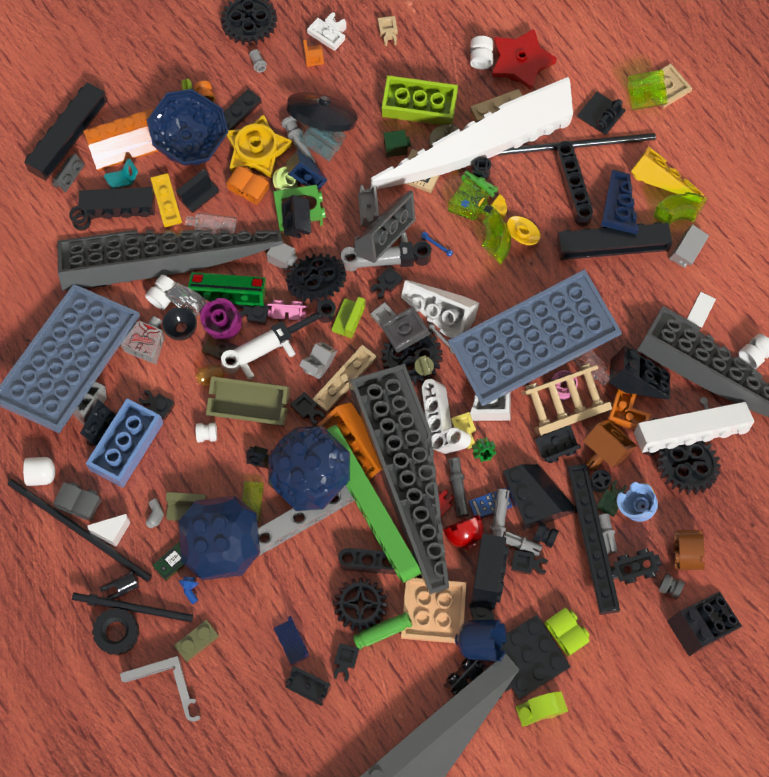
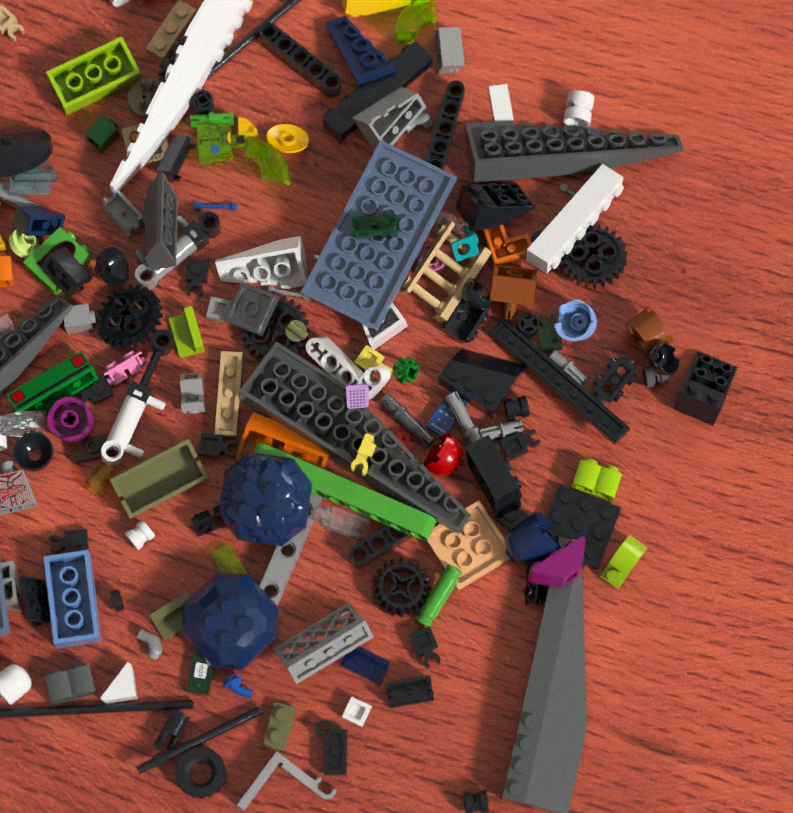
camera: 40 degrees left, 5 degrees up
(155, 466) = (117, 600): none -> black tile
(221, 687) = (334, 749): none -> black hinge
(258, 671) = (356, 712): none -> white plate
(267, 609) = (323, 652): none -> light grey fence
(336, 237) = (115, 264): none -> black piece
(353, 525) = (342, 522): none -> clear hinge
(404, 484) = (366, 449): none -> light yellow plate
(431, 441) = (357, 396): none -> lavender slope
(433, 191) = (175, 157): none -> black hinge
(488, 675) = (560, 566): none -> magenta slope
(533, 328) = (374, 226): none -> dark green hinge
(573, 430) = (473, 295): none -> black hair
(602, 389) = (470, 239): none -> teal bracket
(609, 263) = (390, 116): none -> light grey wedge
(627, 279) = (424, 119): none -> light grey arm
(647, 293) = (446, 121): none -> black beam
(684, 576) = (662, 359): none -> black hair

